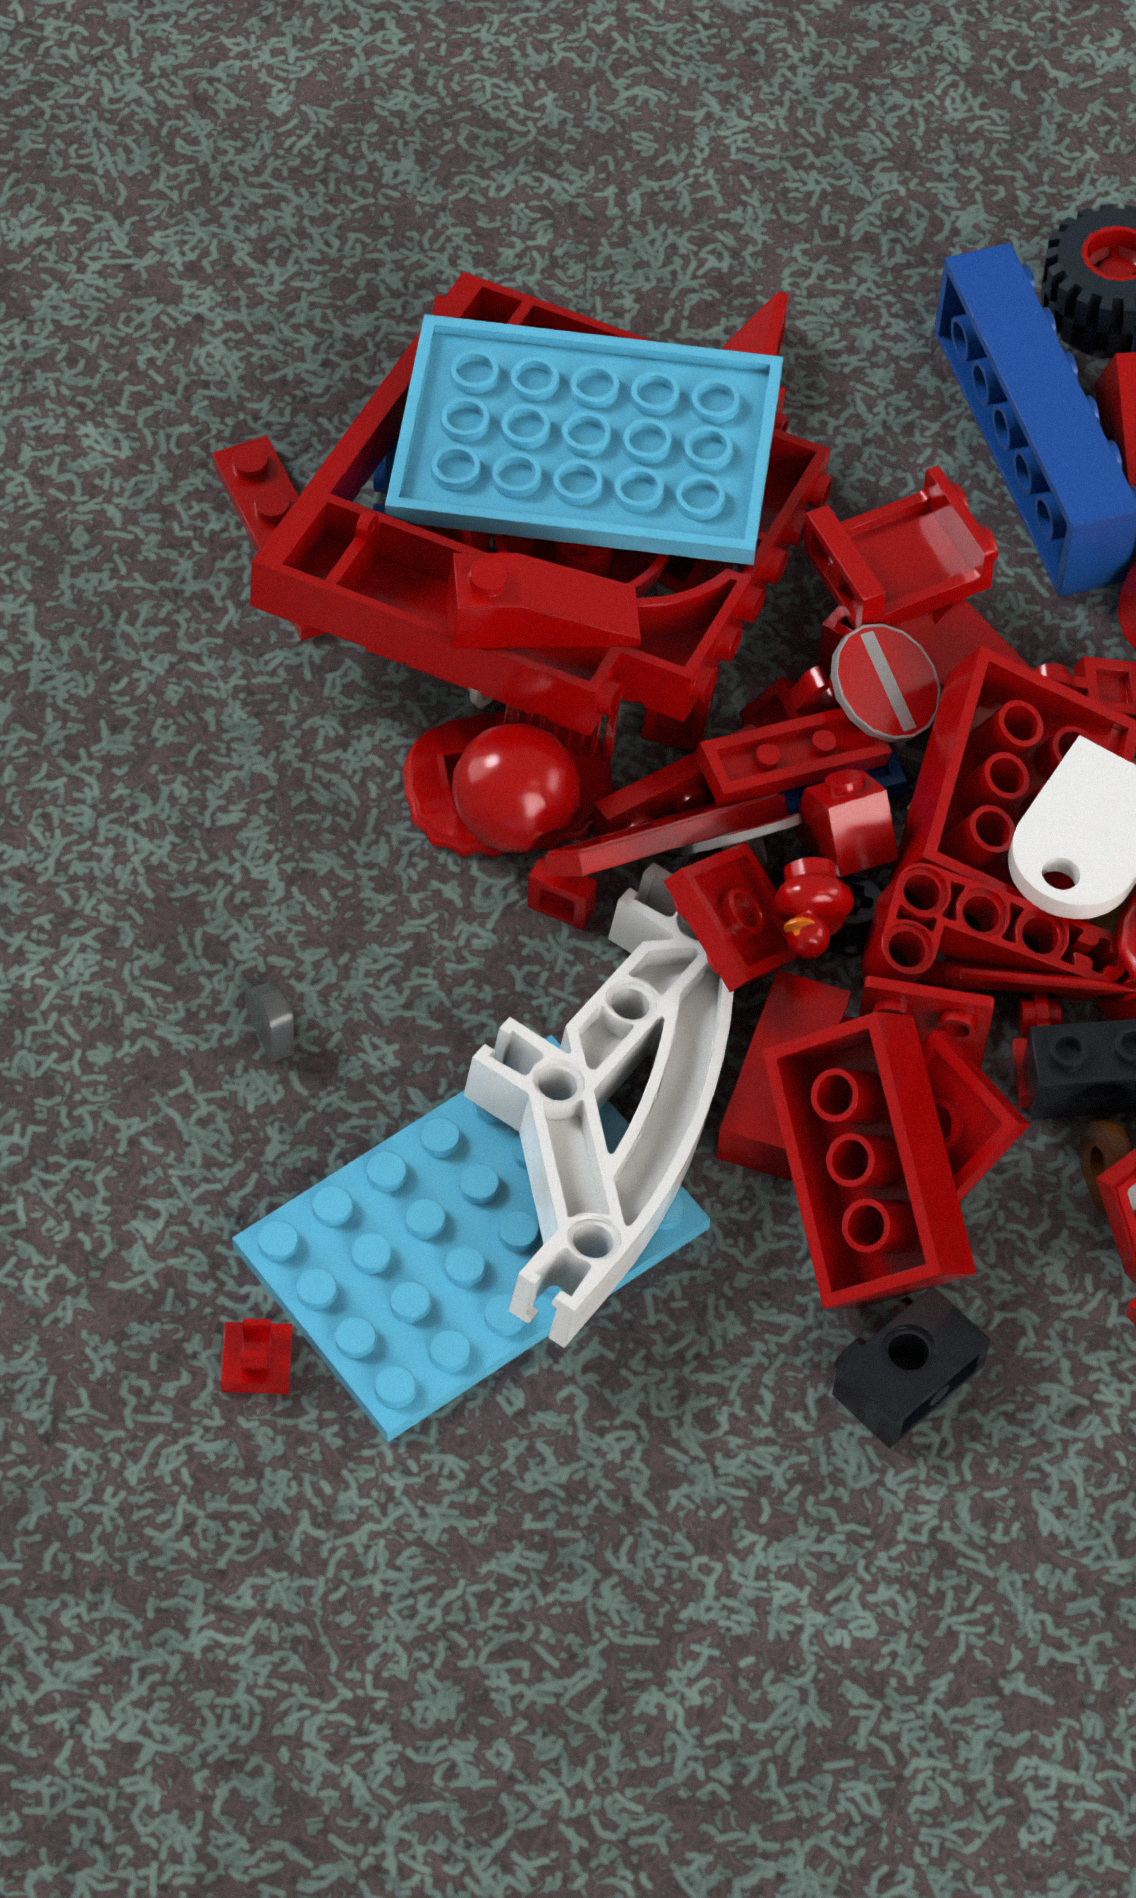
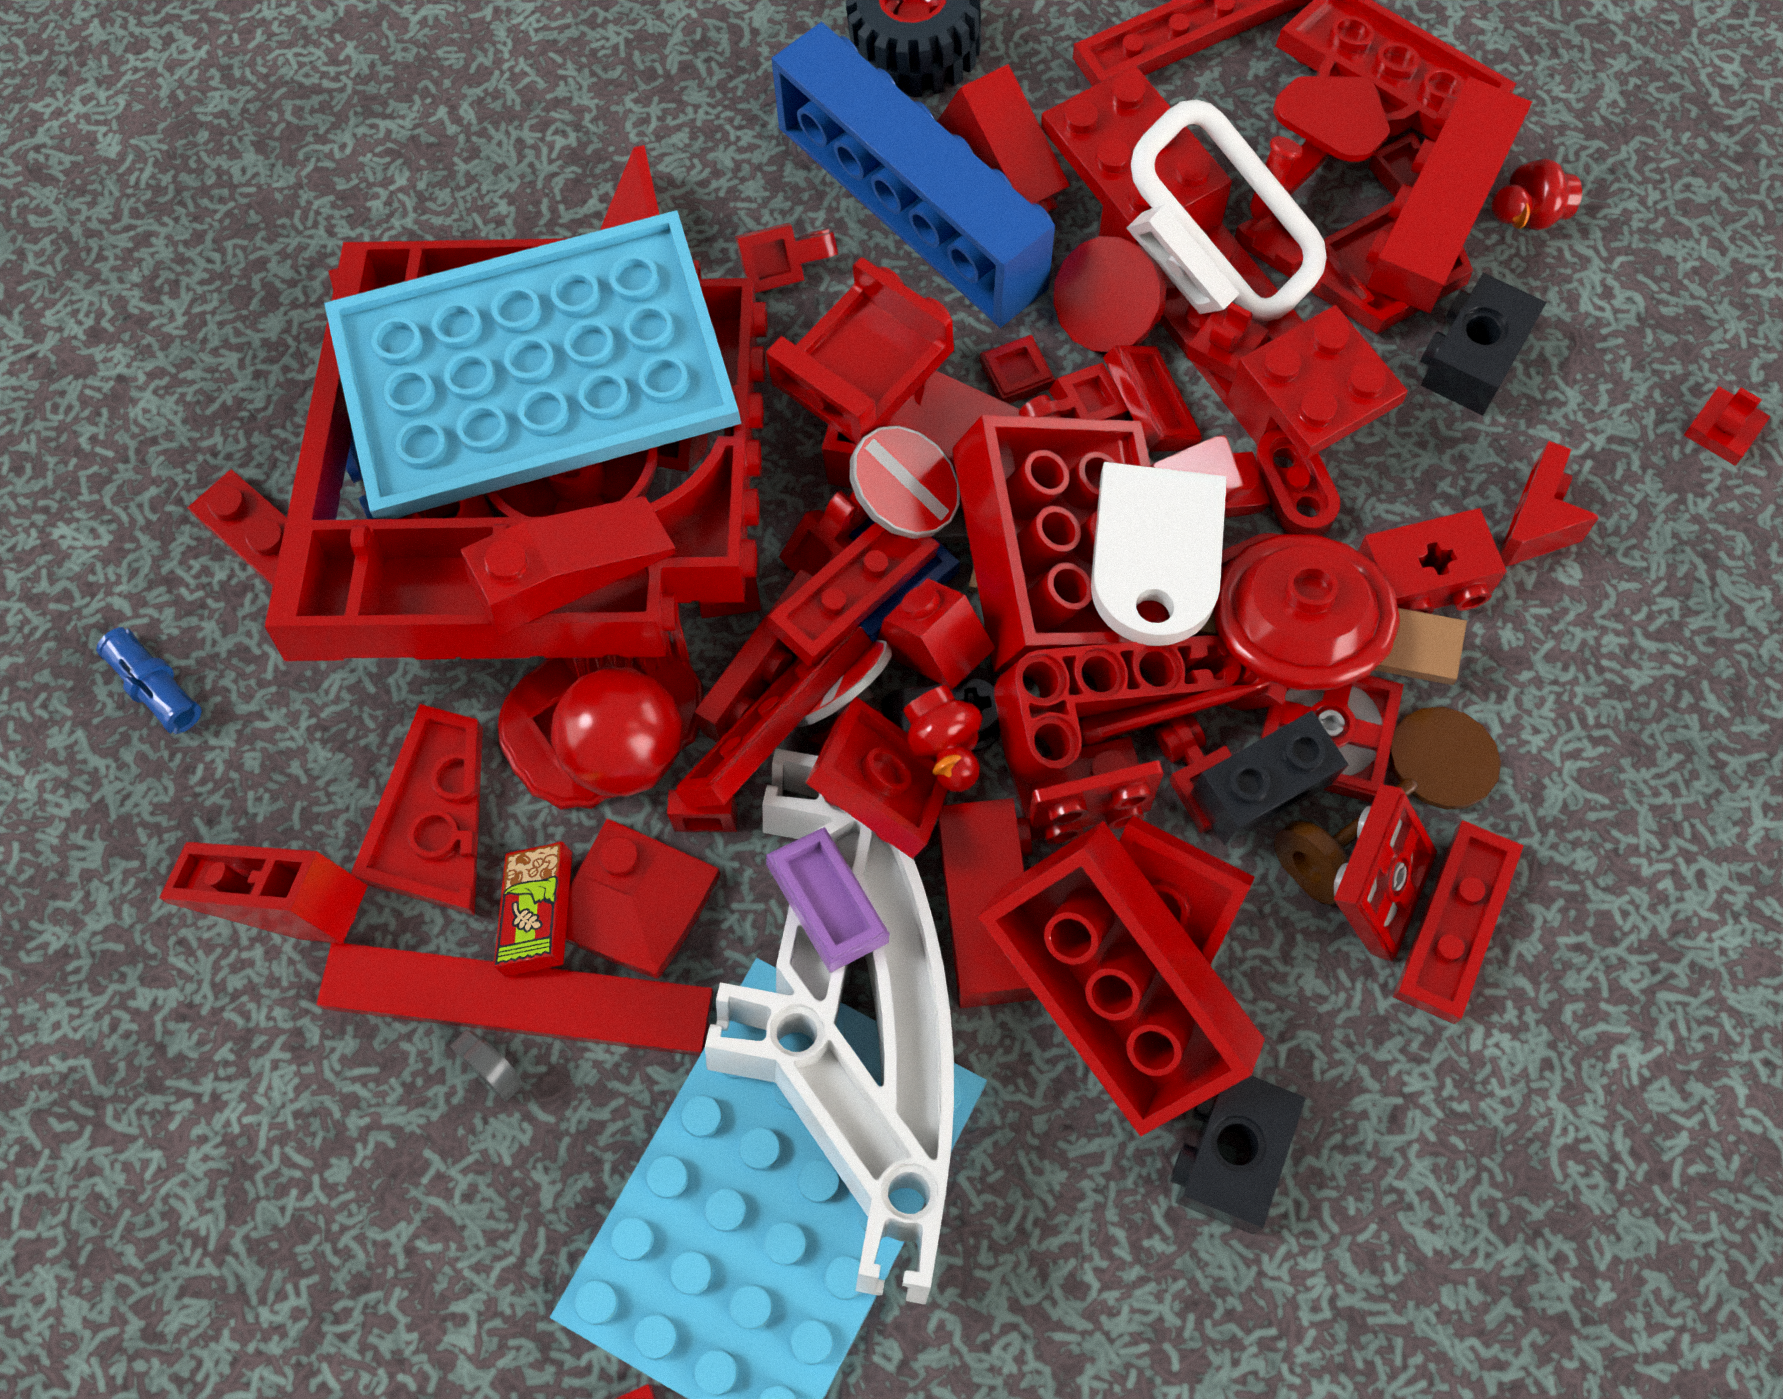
camera: 20 degrees left, 10 degrees up
(113, 586) = (148, 680): none -> blue pin
(145, 798) = (267, 889): none -> red slope
(312, 798) = (429, 815): none -> red wing
(317, 979) = (528, 1003): none -> red tile
(371, 910) = (533, 909): none -> tile
(463, 944) = (636, 899): none -> red plate
(637, 993) = (827, 899): none -> medium lavender tile
(867, 445) = (776, 256): none -> red plate
(1053, 637) = (1016, 370): none -> red tile

